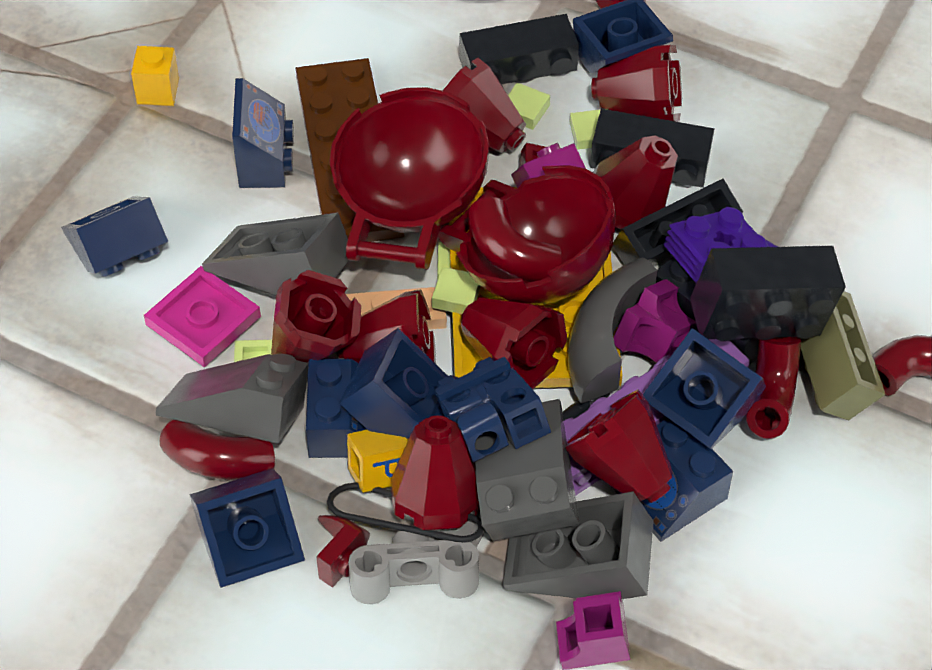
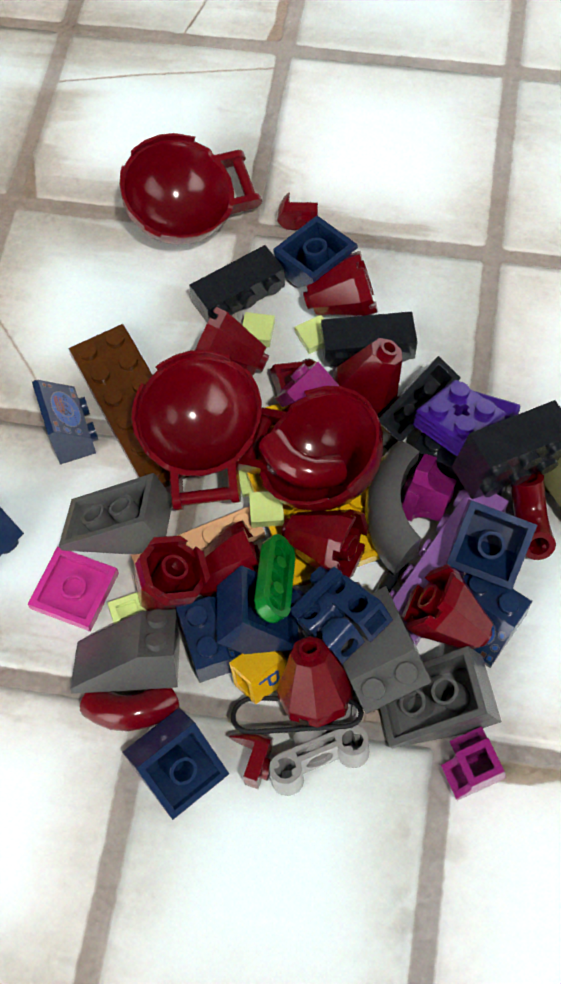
camera: 15 degrees left, 10 degrees up
(431, 354) = (275, 579): none -> green plate

